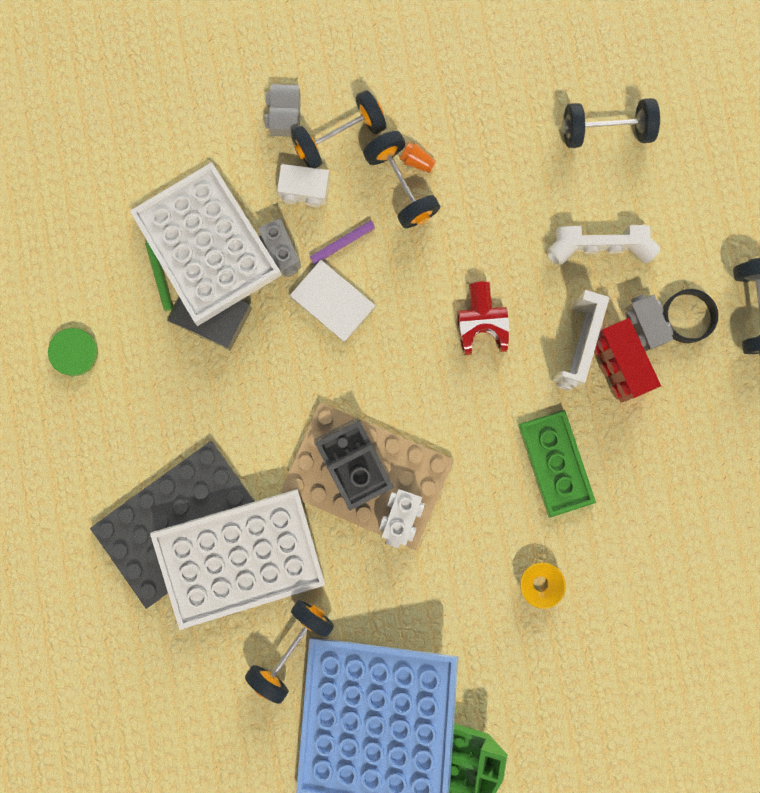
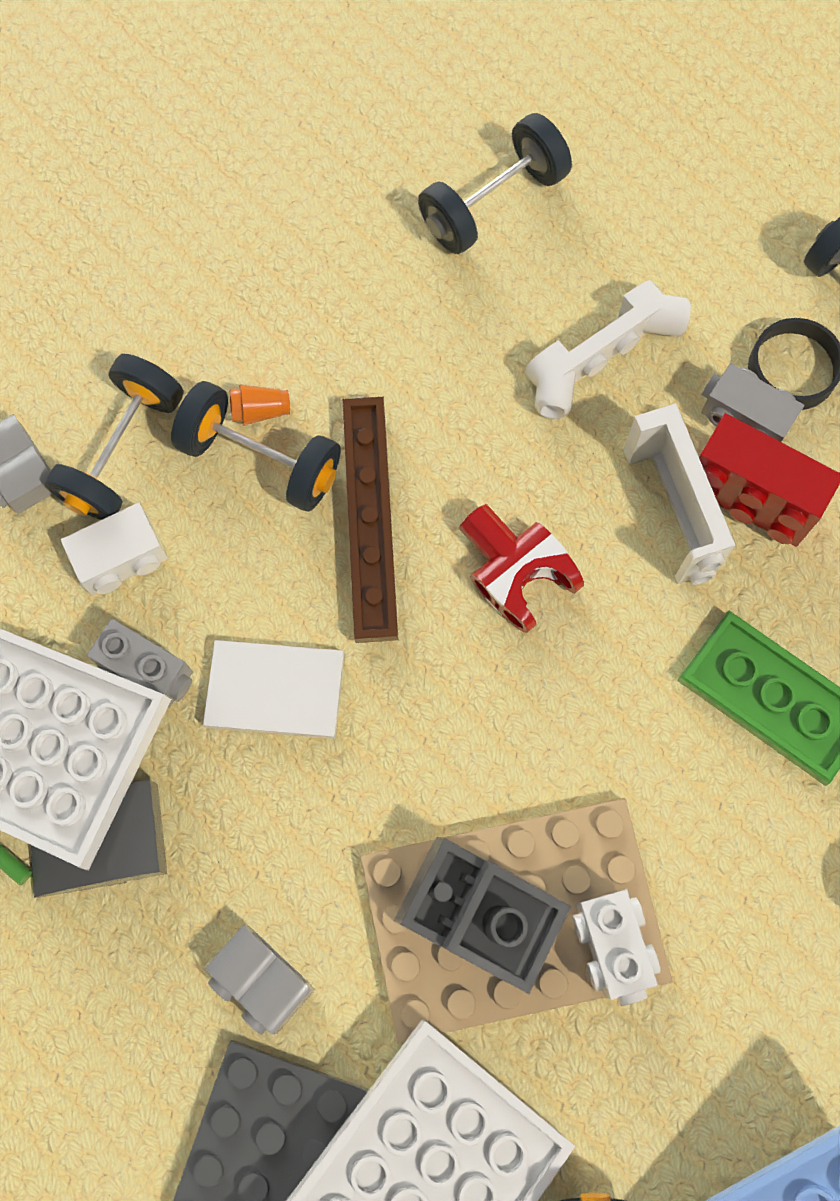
camera: 30 degrees left, 10 degrees down
(239, 424) = (258, 981): none -> light grey brick
(342, 242) = (229, 594): medium lavender bar -> none
(431, 250) = (370, 520): none -> reddish brown plate

